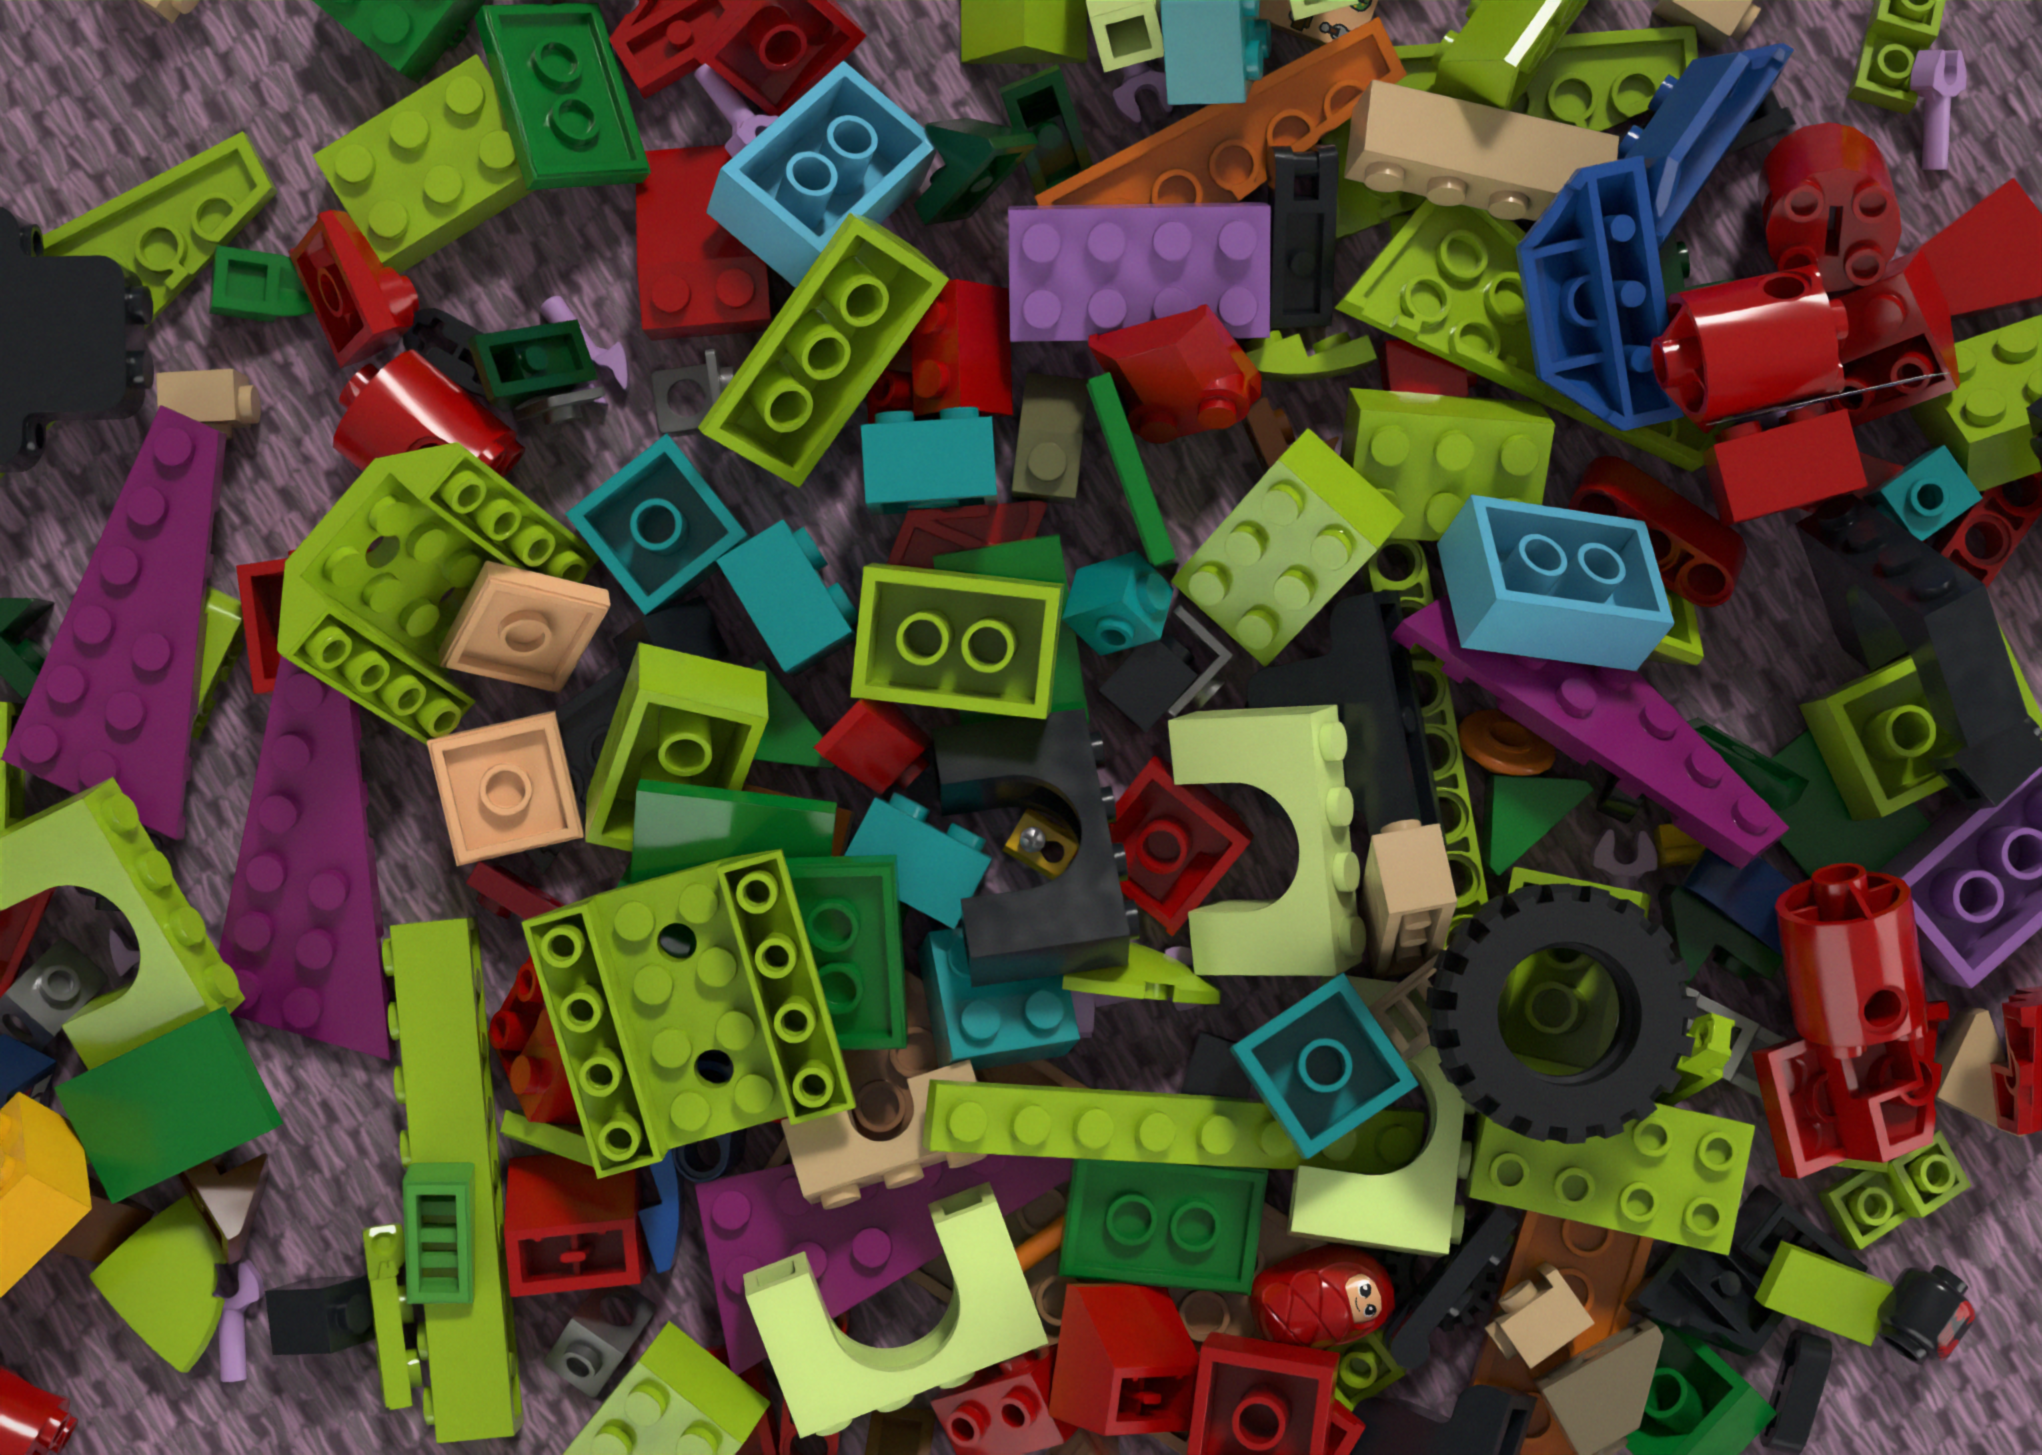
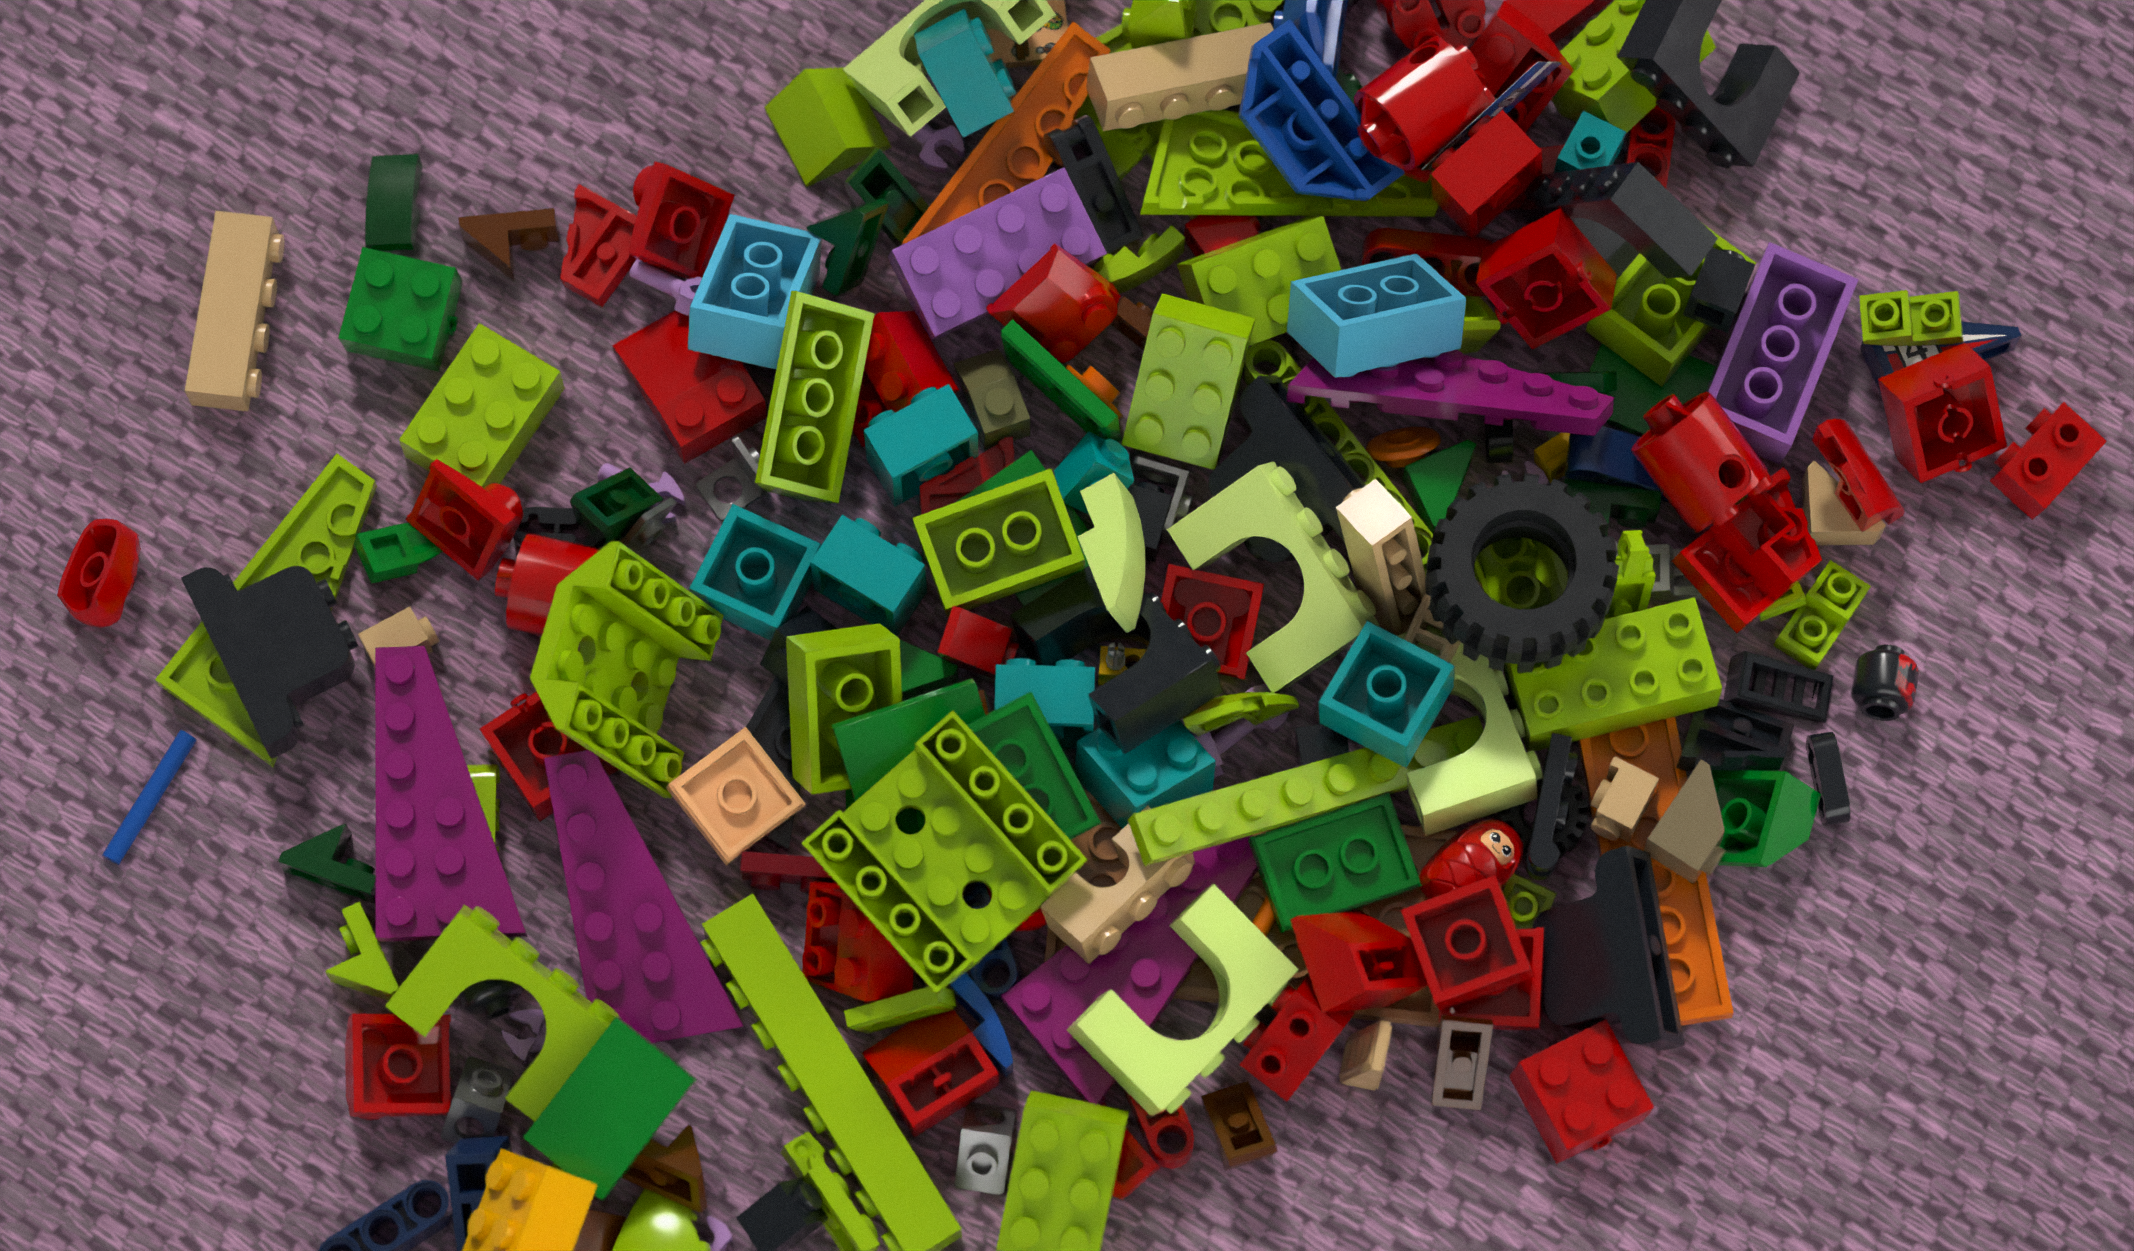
camera: 30 degrees left, 15 degrees down
(439, 1179) = (850, 1084): bright green slope -> none
(523, 627) = (697, 679): light nougat tile -> none
(562, 95) = (549, 325): green tile -> none
(1089, 723) = (1115, 548): none -> yellowish green slope
(1175, 494) = (1099, 386): none -> orange piece
(1786, 637) = (1546, 279): none -> red brick
(1823, 1293) = (1809, 701): lime tile -> none

